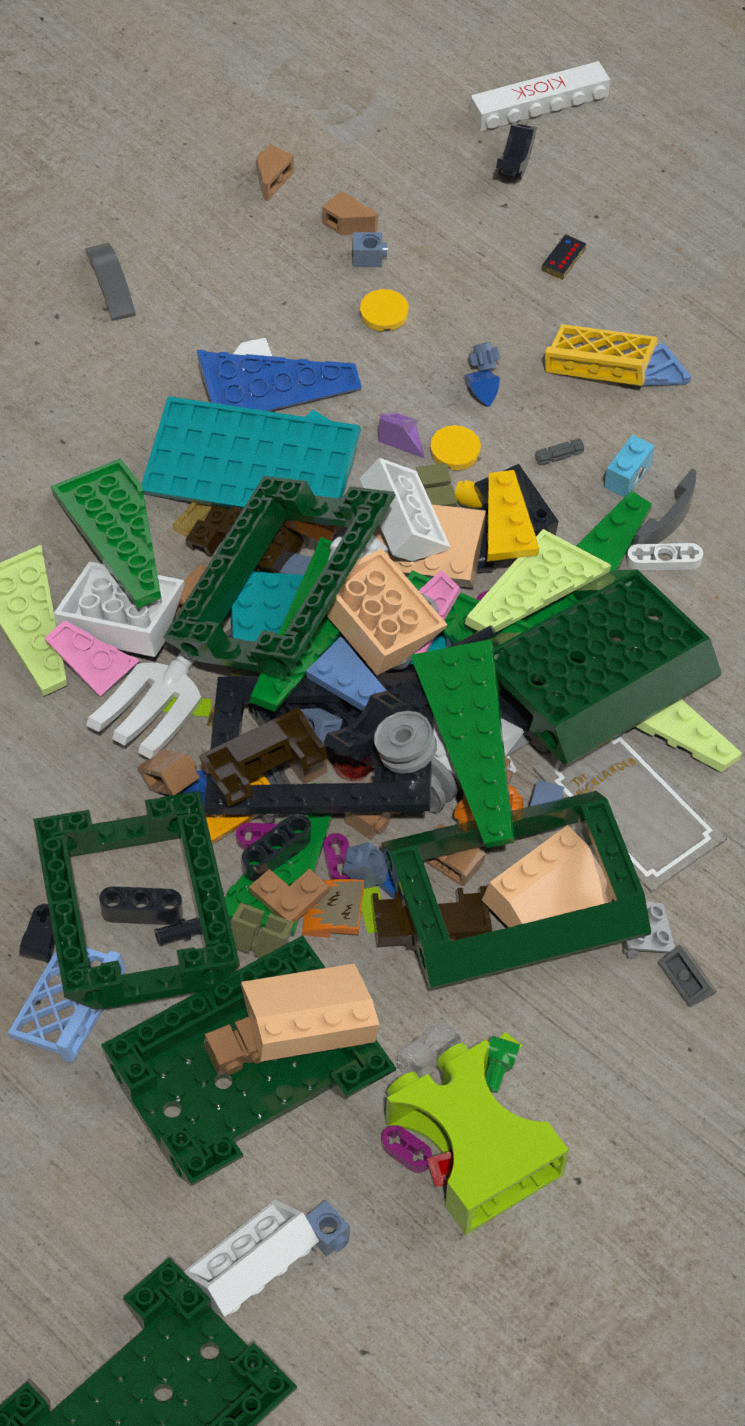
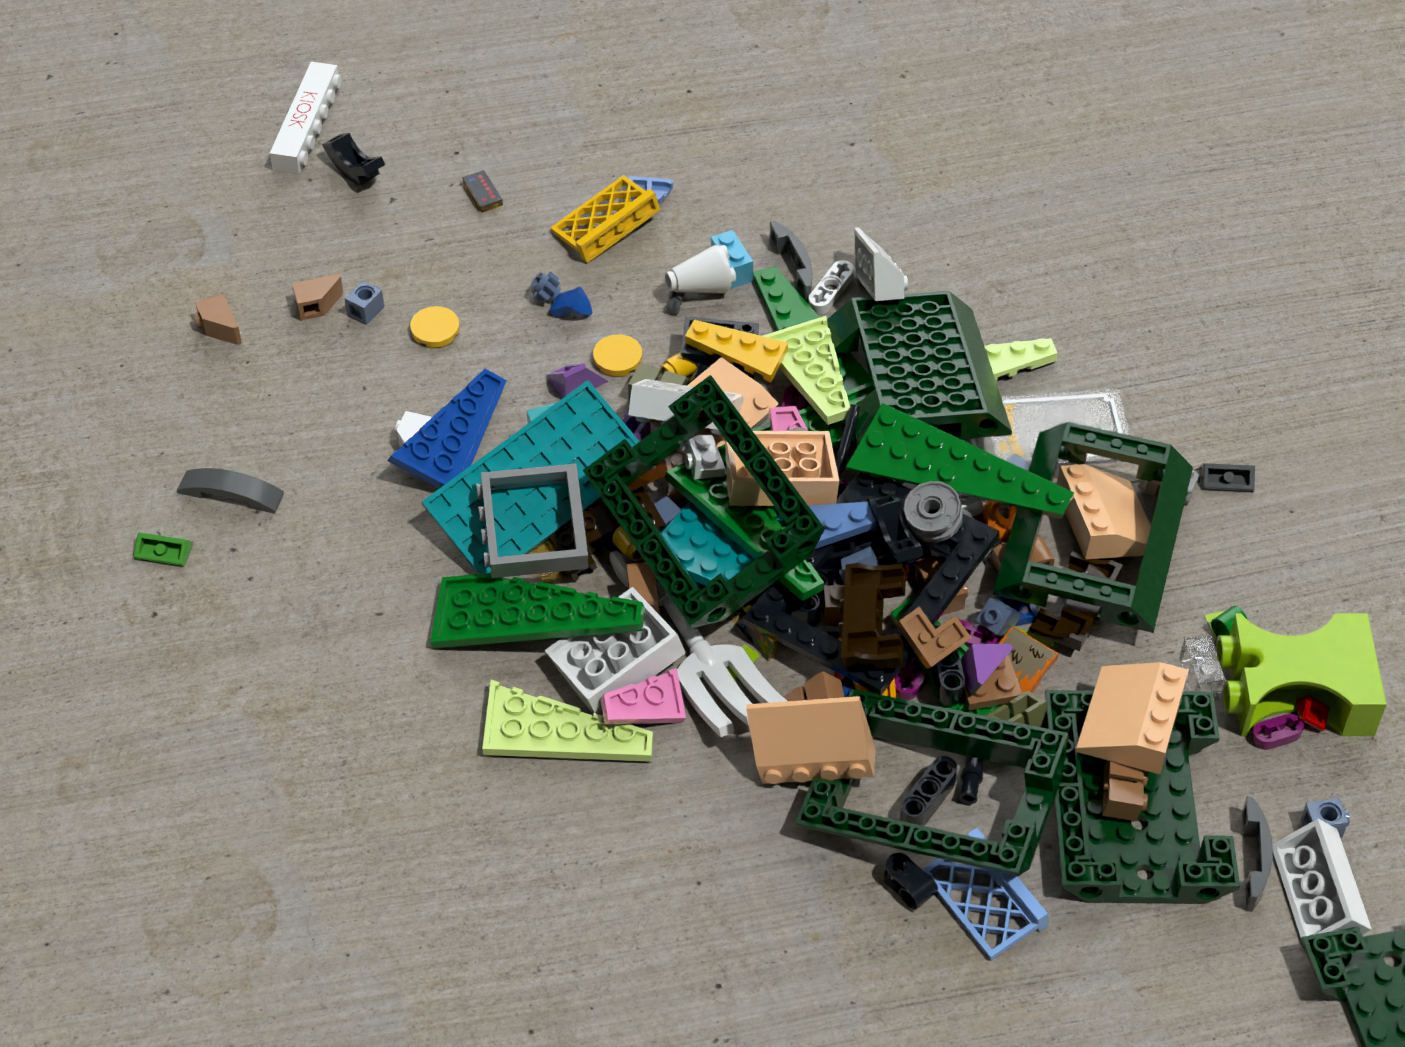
camera: 55 degrees left, 5 degrees down
(22, 273) = (162, 549): none -> bright green slope
(112, 787) = (811, 740): none -> light nougat slope
(214, 1205) = (1256, 826): none -> dark grey slope
(220, 506) = (536, 562): none -> light grey window
(270, 815) = (931, 643): none -> medium nougat plate
(284, 869) = (981, 662): none -> medium lavender slope
(585, 451) = (702, 273): none -> white cone
(691, 568) = (877, 270): none -> white slope

